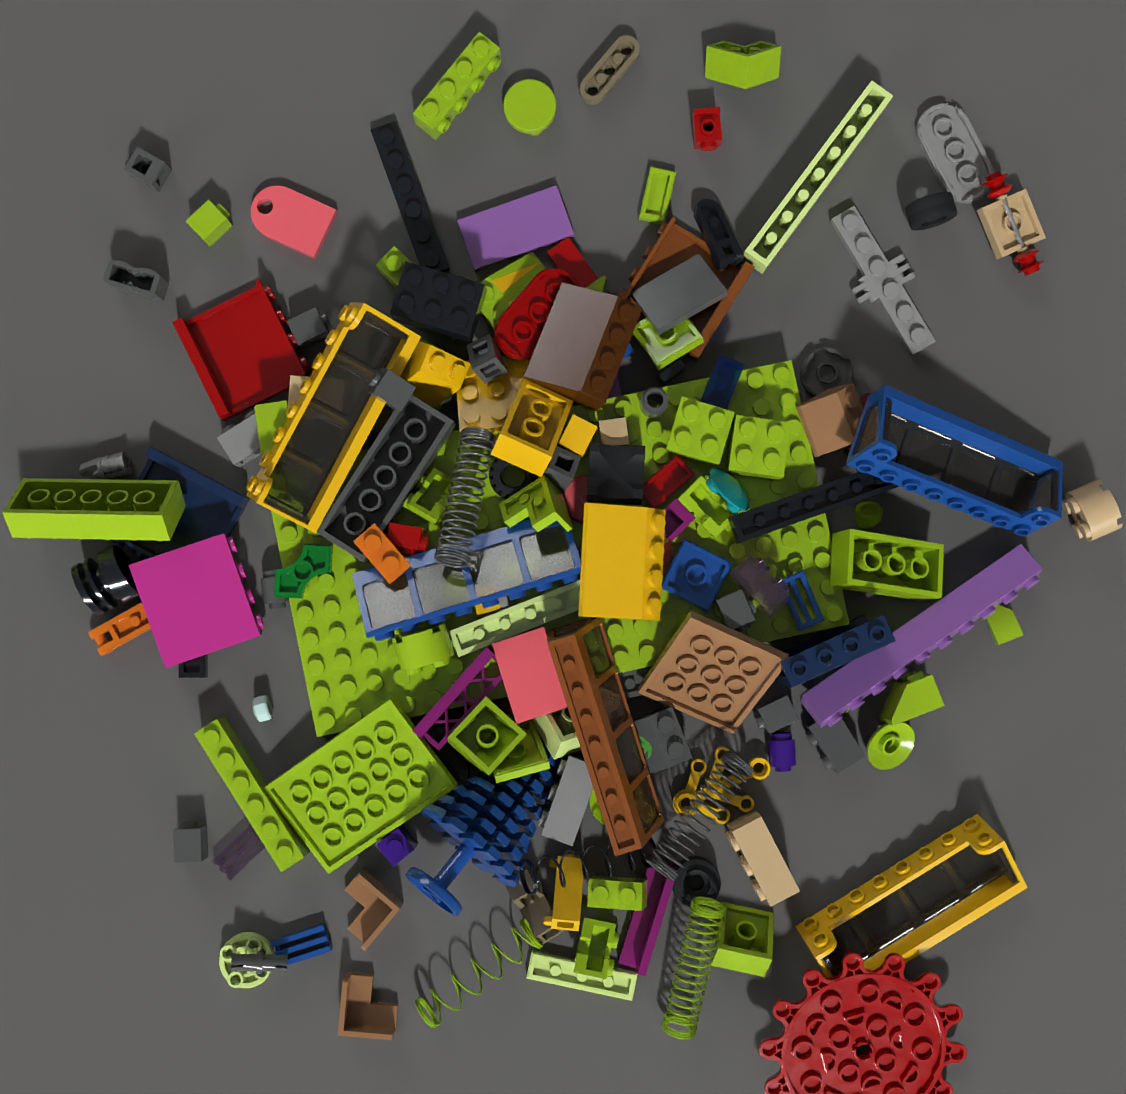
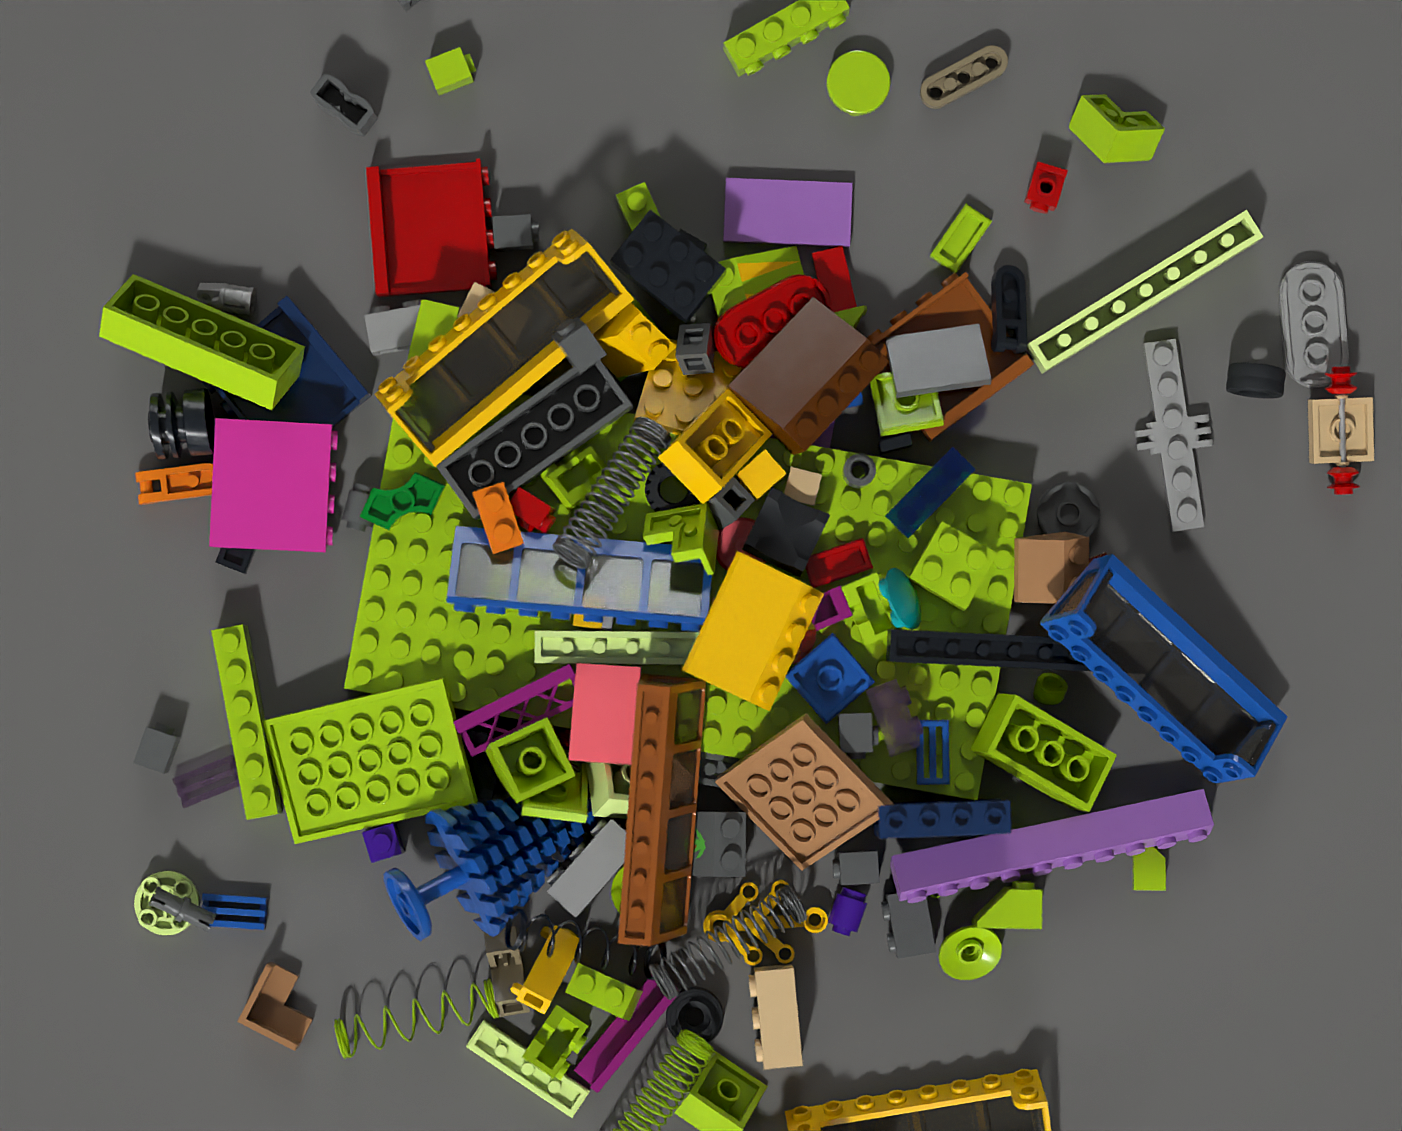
camera: 20 degrees right, 0 degrees up
(262, 708) = (294, 633): light aqua tile -> none
(294, 220) = (545, 104): coral tile -> none
(378, 903) = (335, 901): medium nougat panel -> none
(409, 197) = (682, 132): black plate -> none
(423, 647) = (500, 637): lime brick -> none
(700, 431) = (896, 522): lime plate -> none
(1092, 511) = (1297, 784): tan brick -> none

